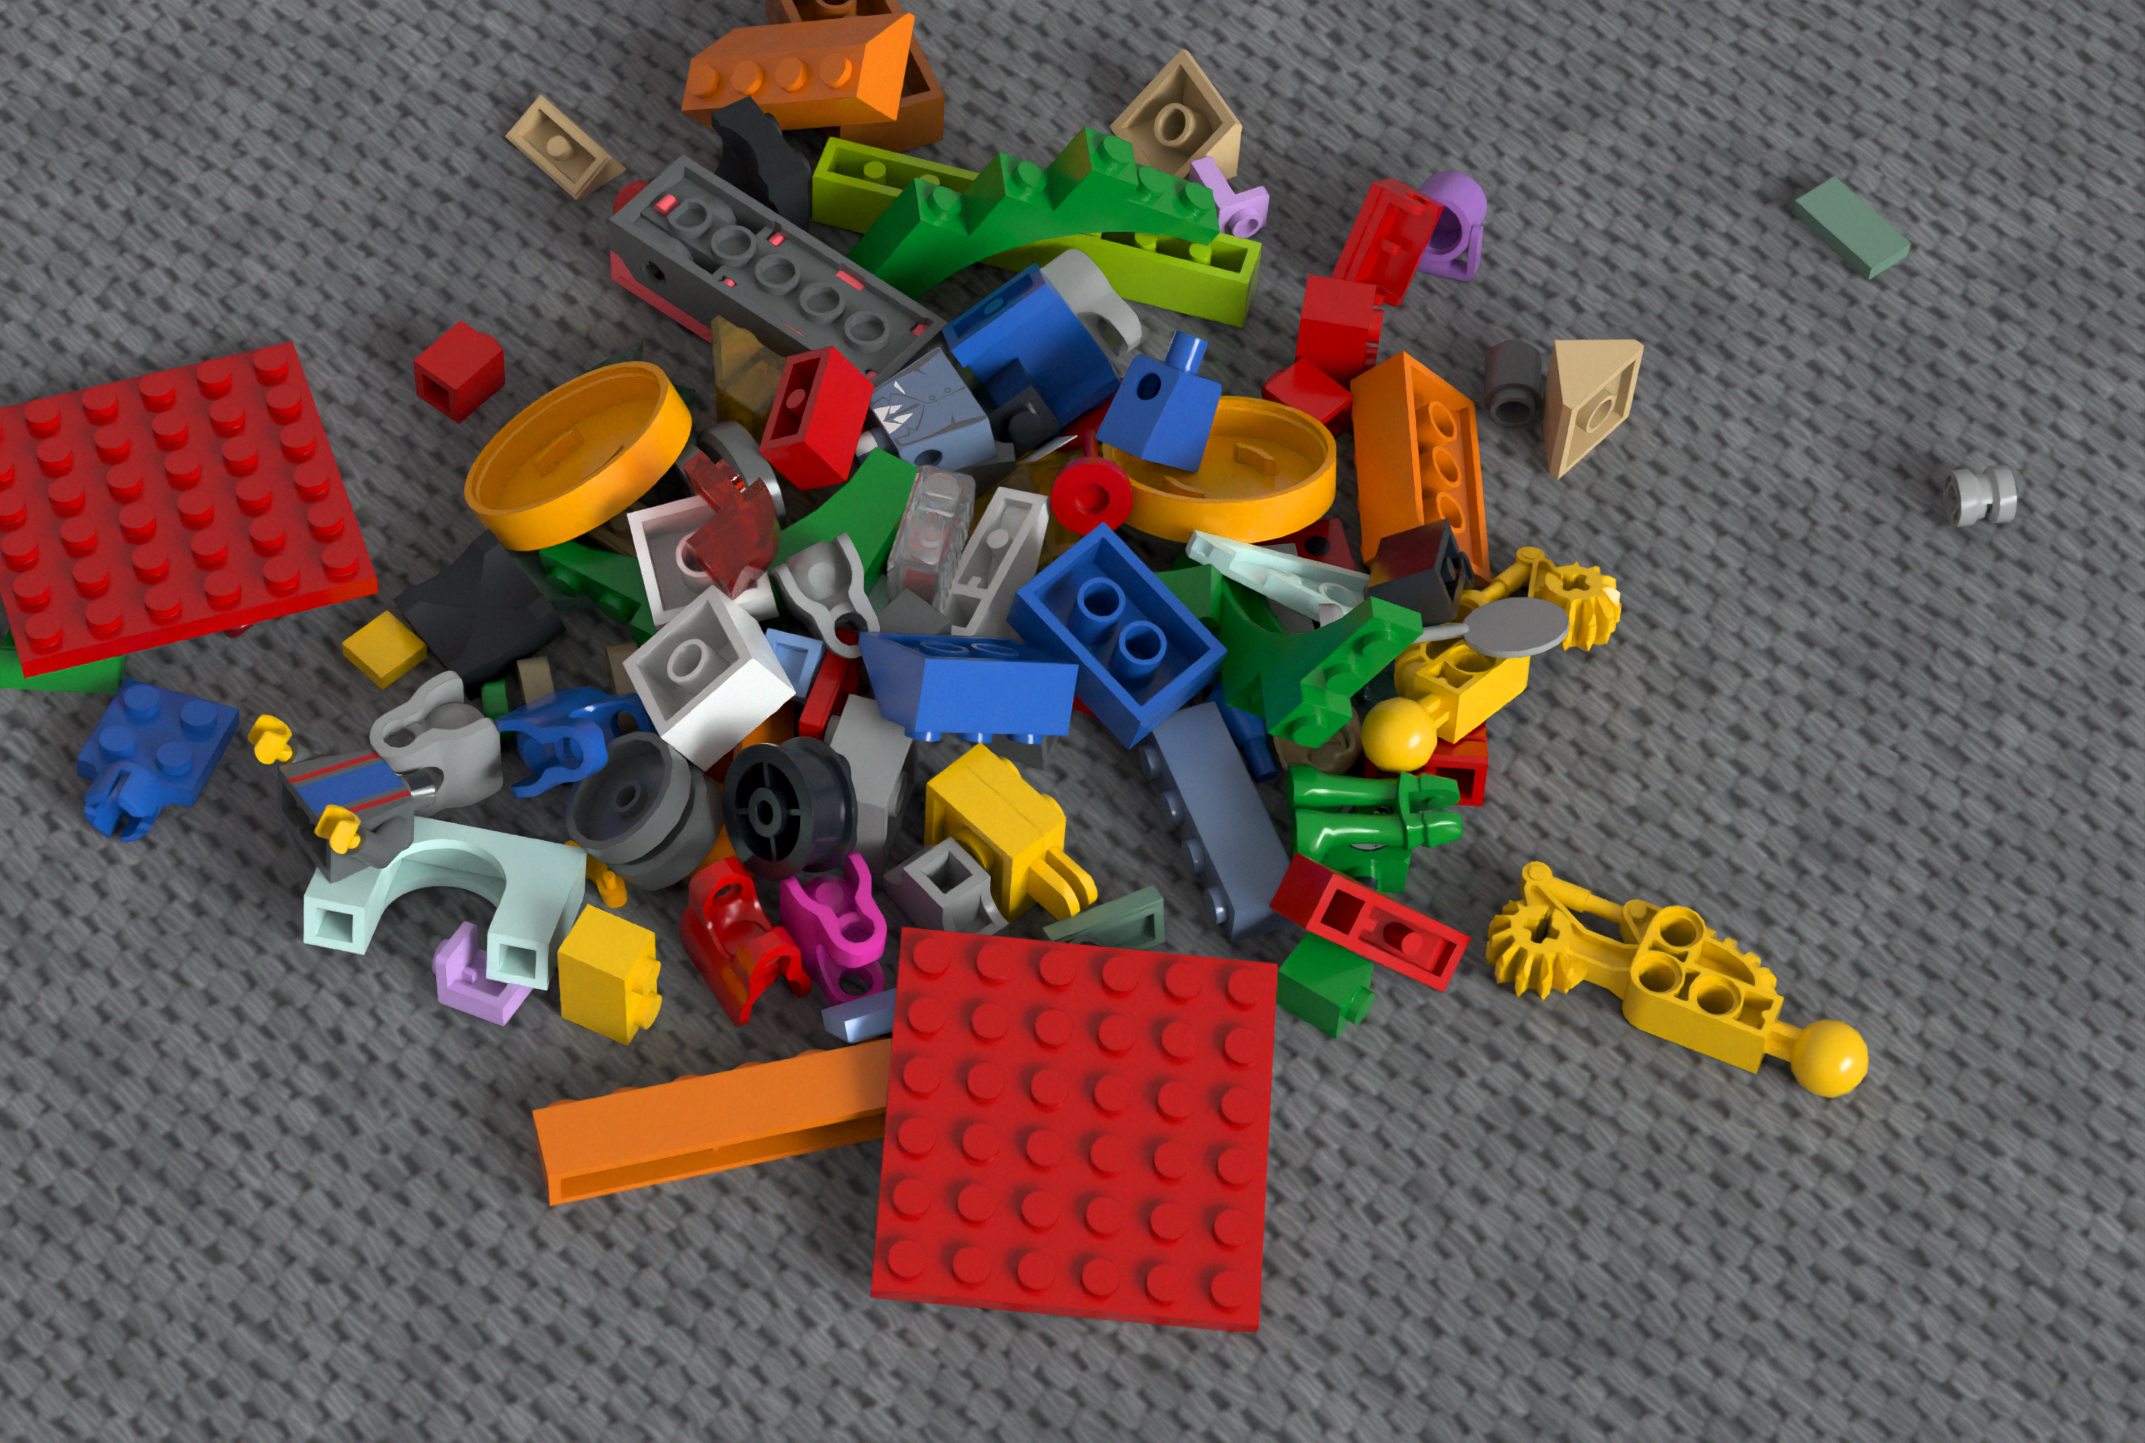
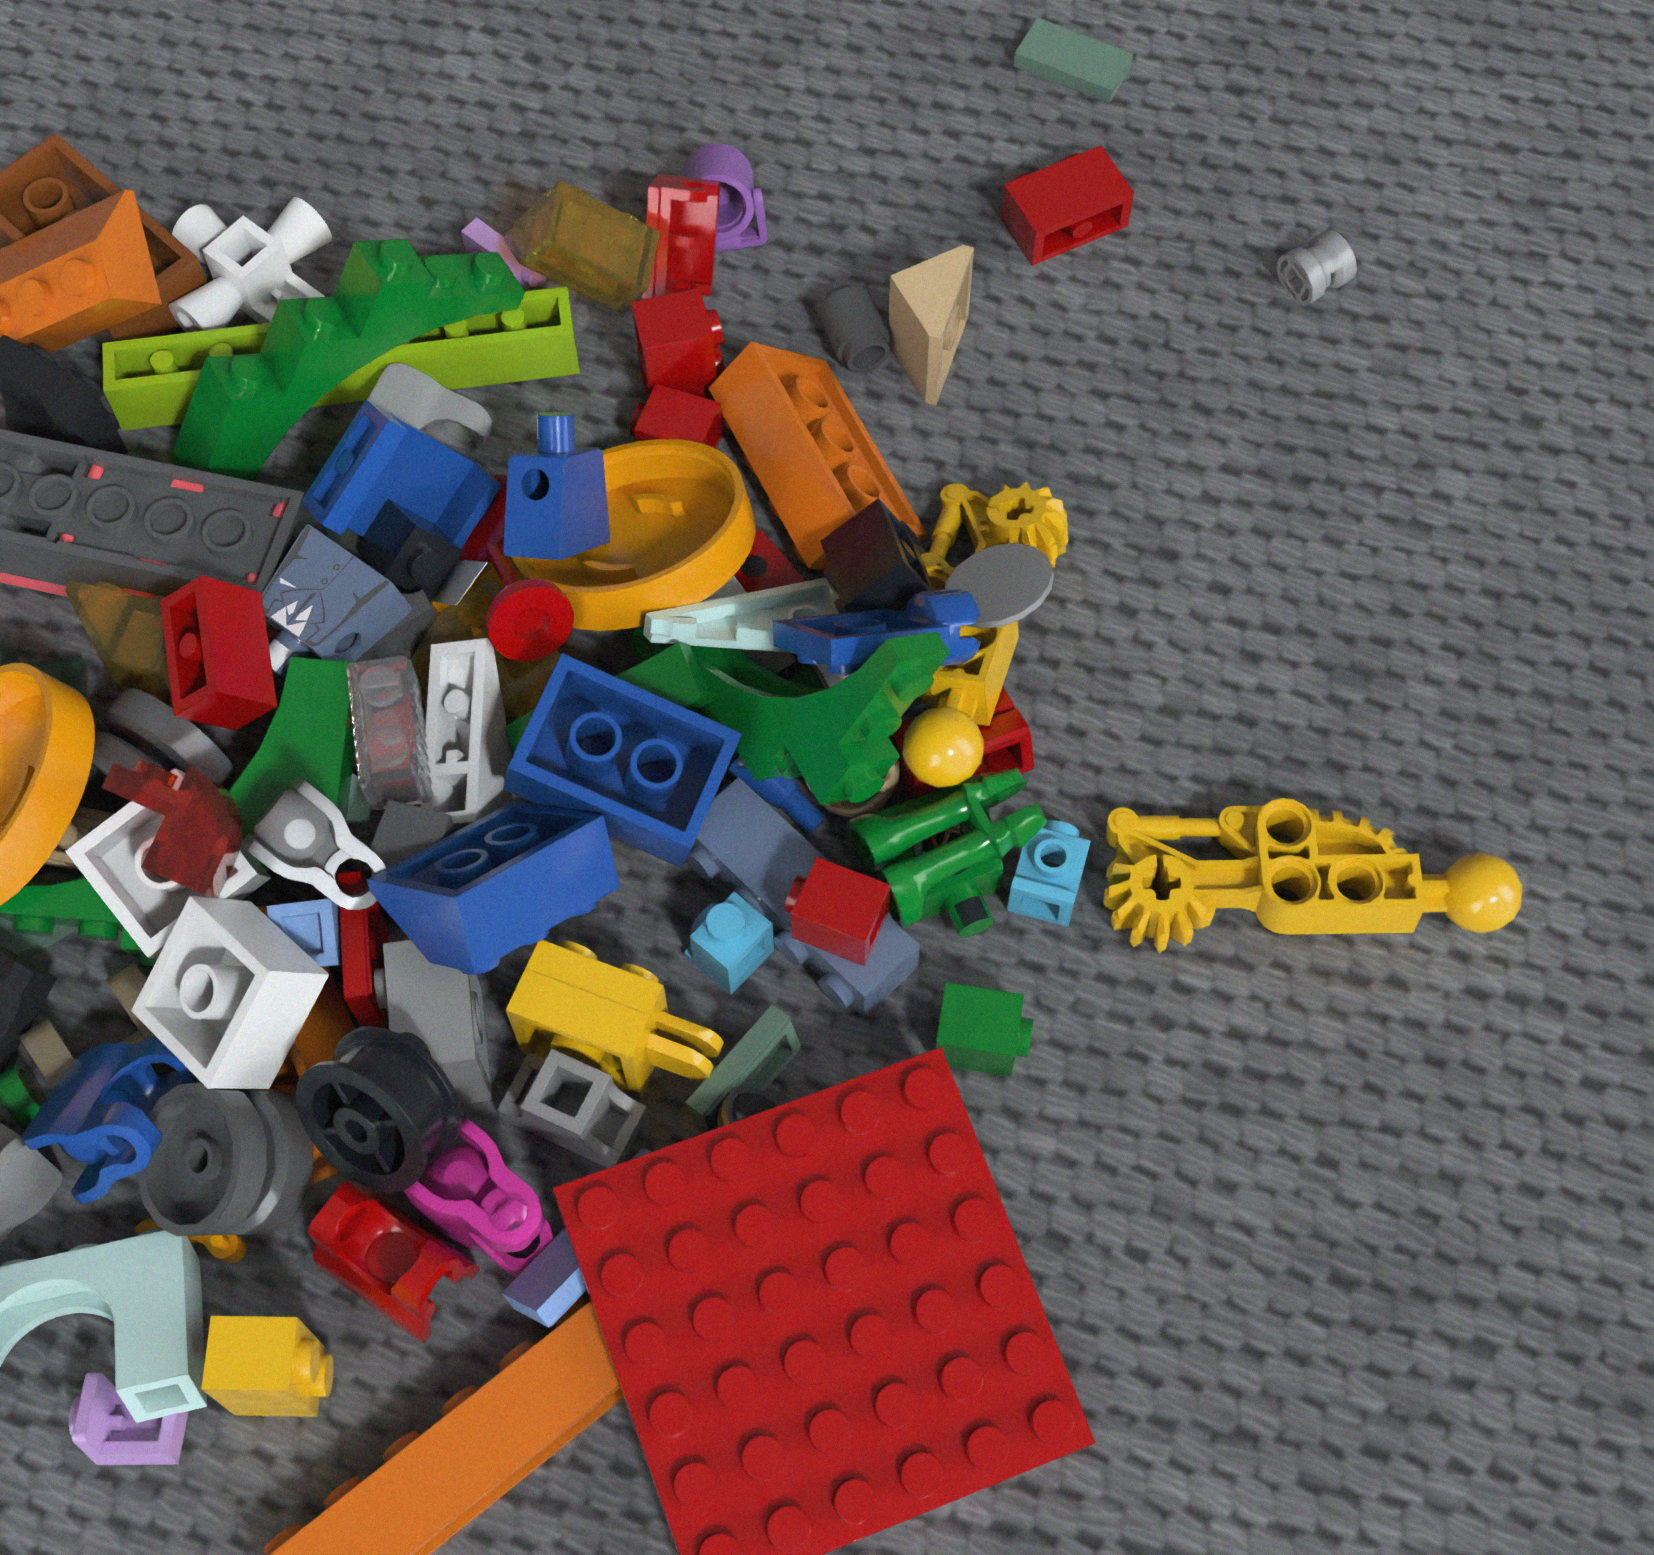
camera: 20 degrees left, 10 degrees up
(985, 116) = (246, 264): none -> white brick
(1138, 817) = (730, 941): none -> medium azure brick
(1181, 121) = (432, 195): tan slope -> none
(1245, 830) = (838, 910): none -> red brick
(1293, 213) = (585, 246): none -> clear yellow slope
(1369, 922) = (994, 952): red slope -> none
(1438, 616) = (851, 638): none -> blue plate
(1453, 886) = (1045, 890): none -> medium azure brick
(1769, 351) = (1066, 204): none -> red brick

